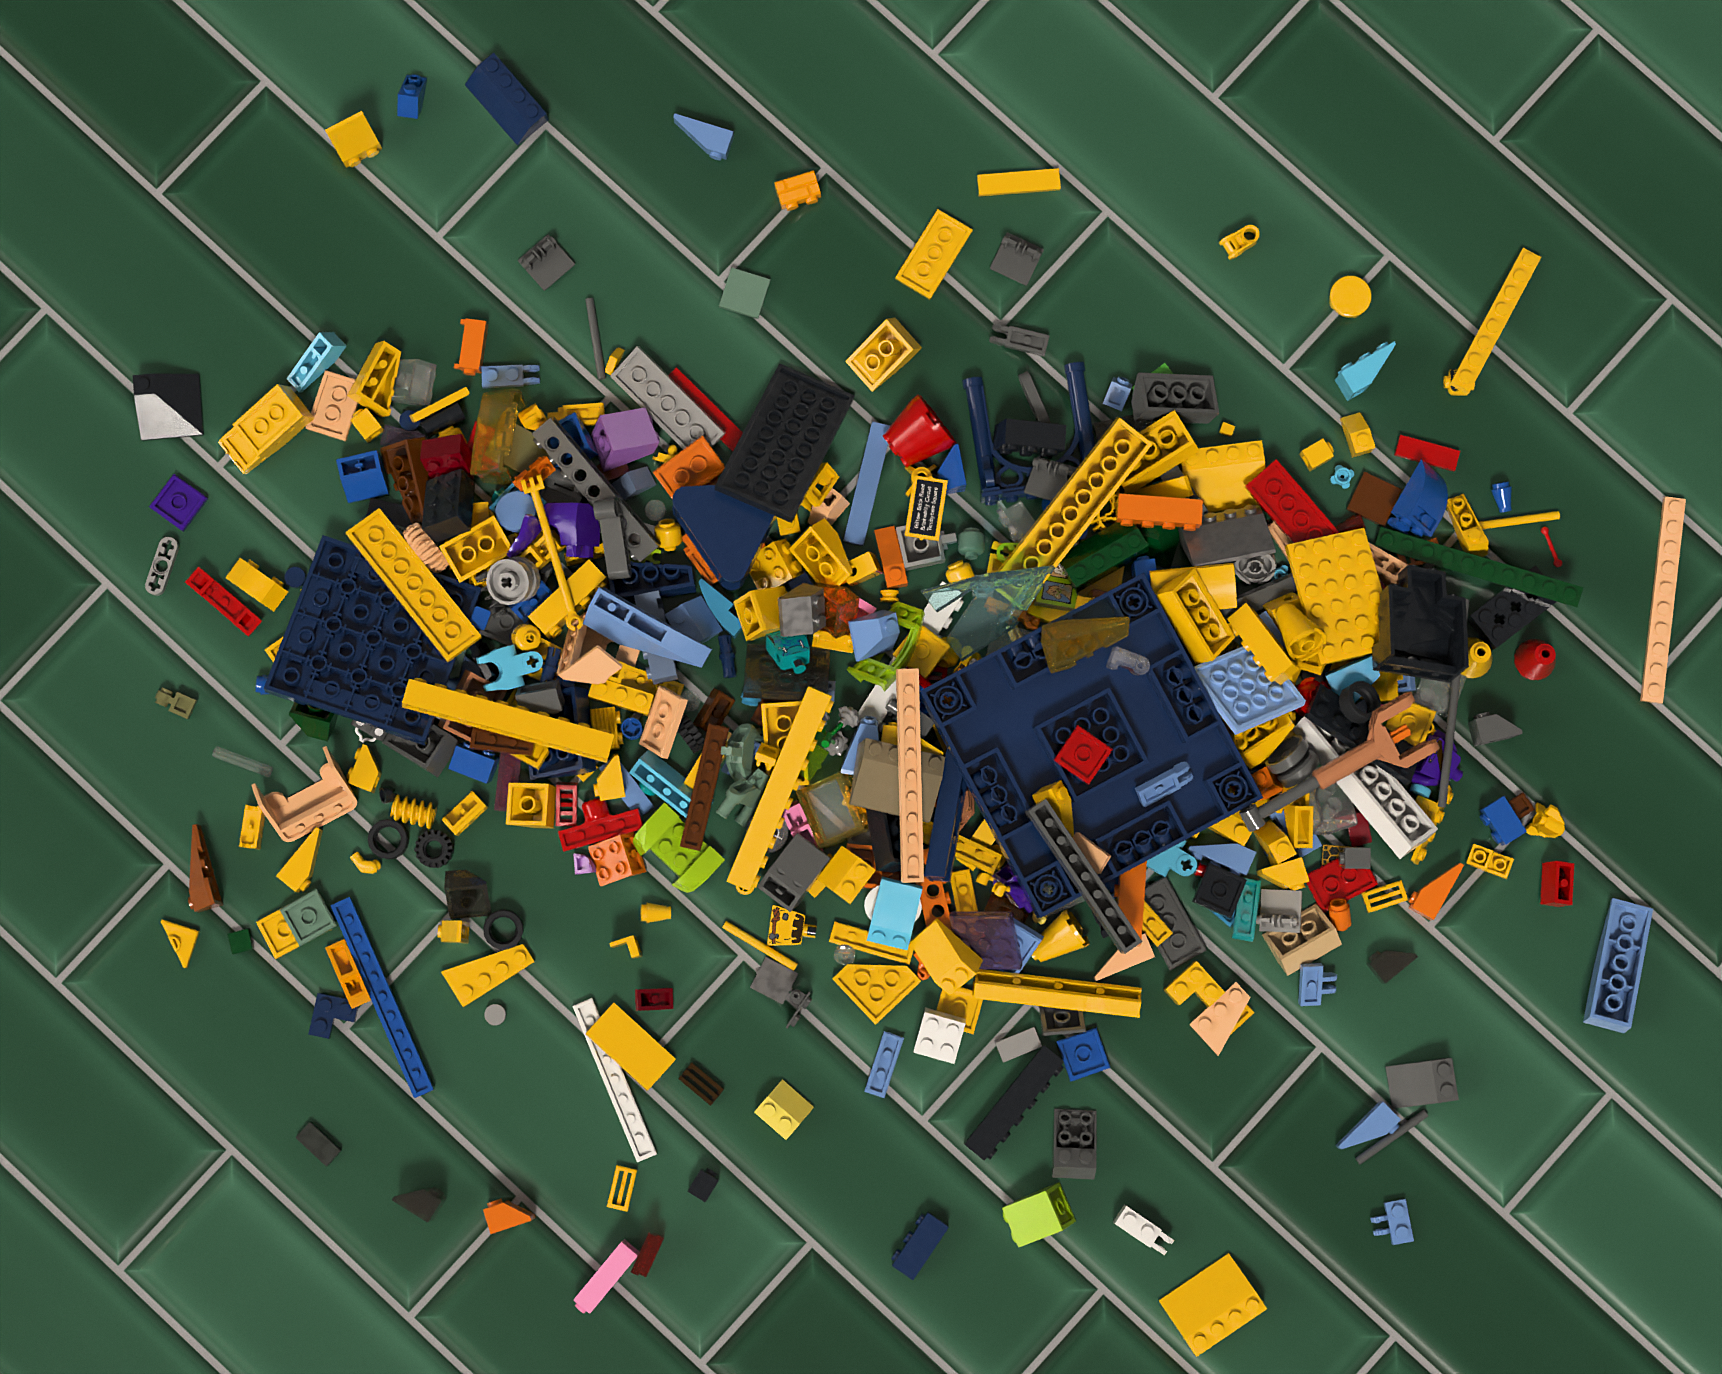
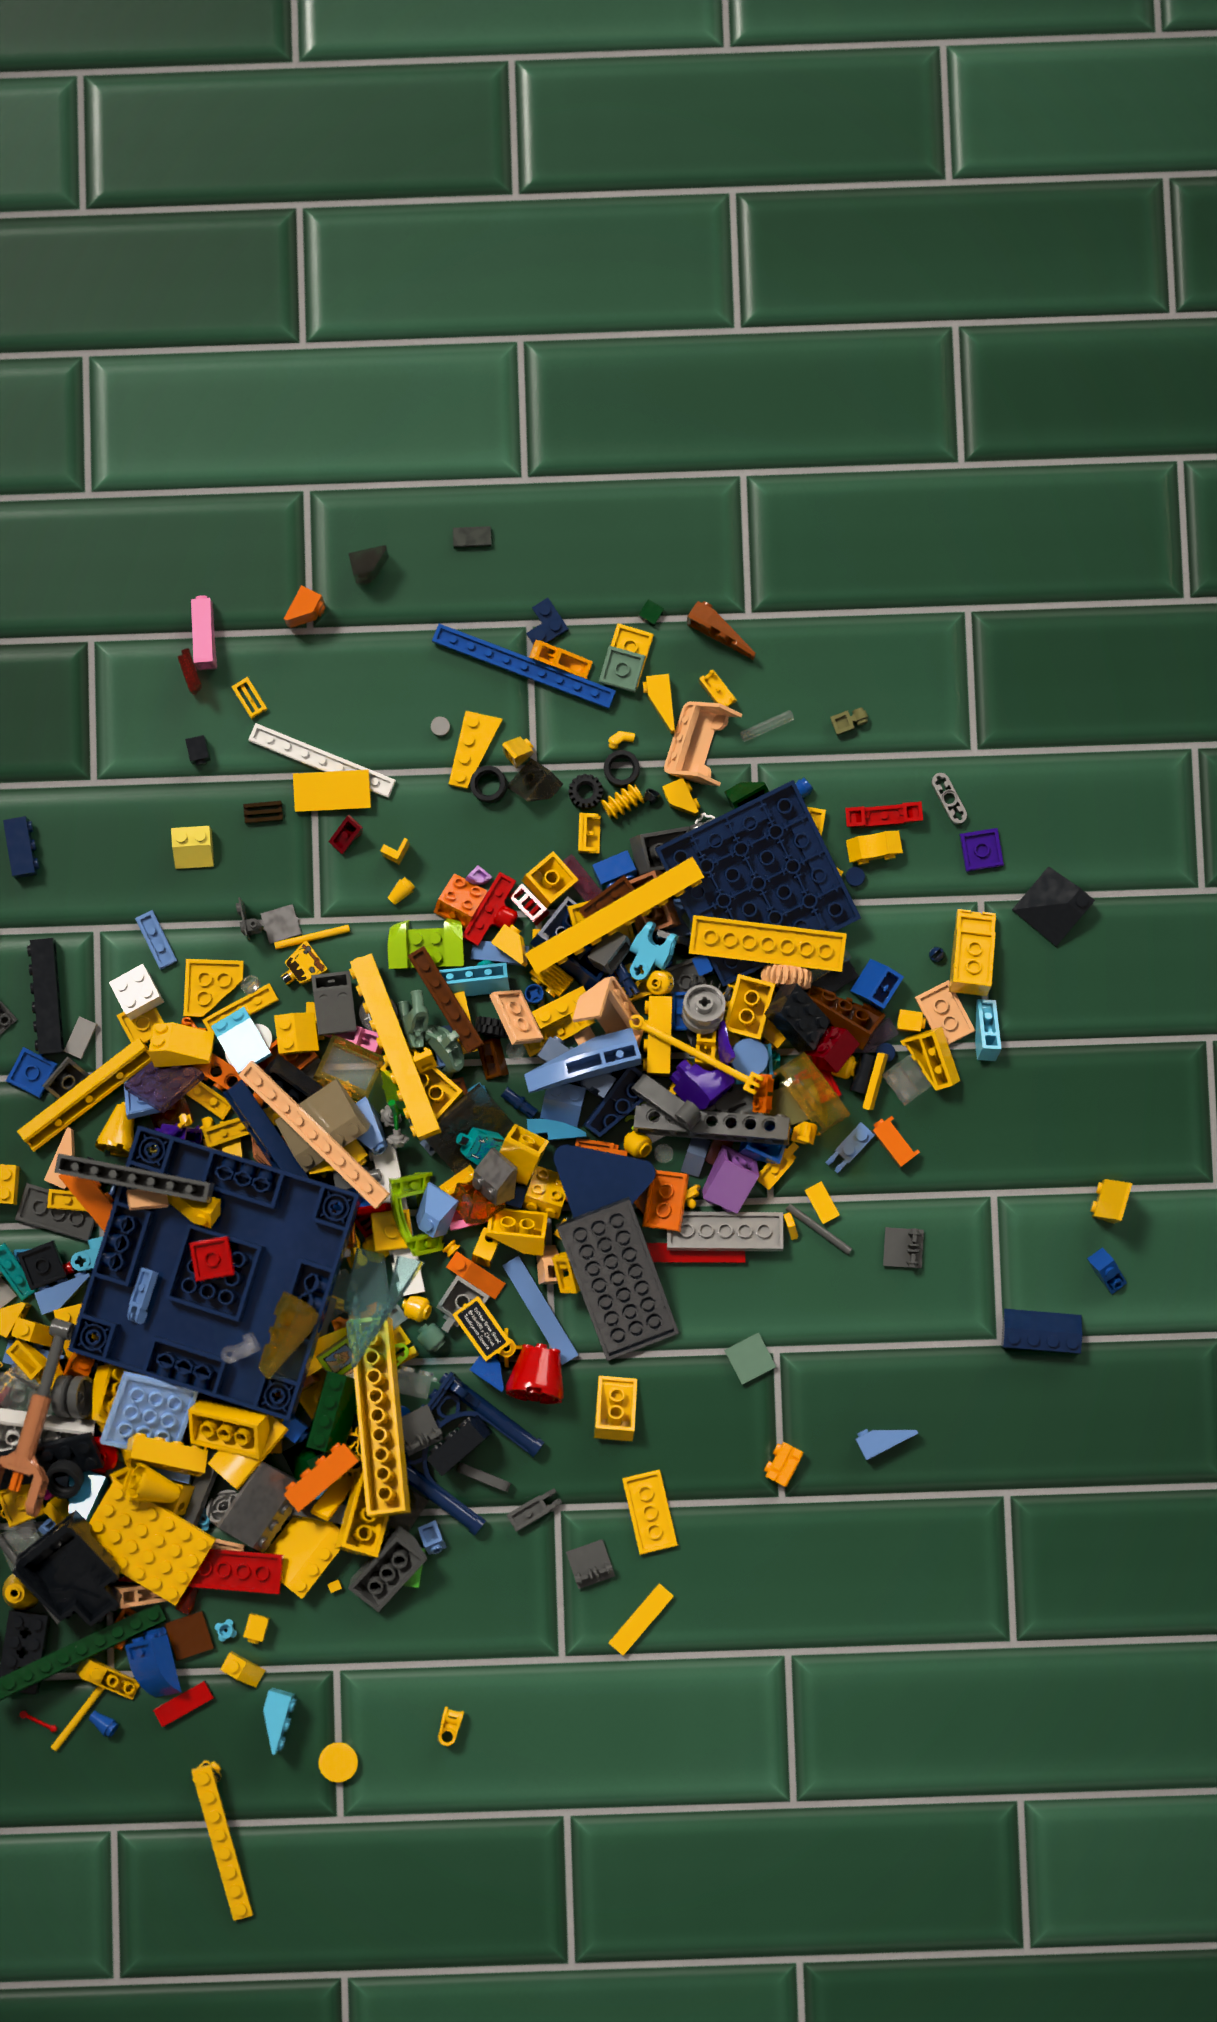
camera: 140 degrees right, 0 degrees up
(182, 939) = (690, 577): yellow tile -> none
(295, 461) = (939, 958): none -> dark blue hinge
(573, 355) = (822, 1202): none -> yellow tile

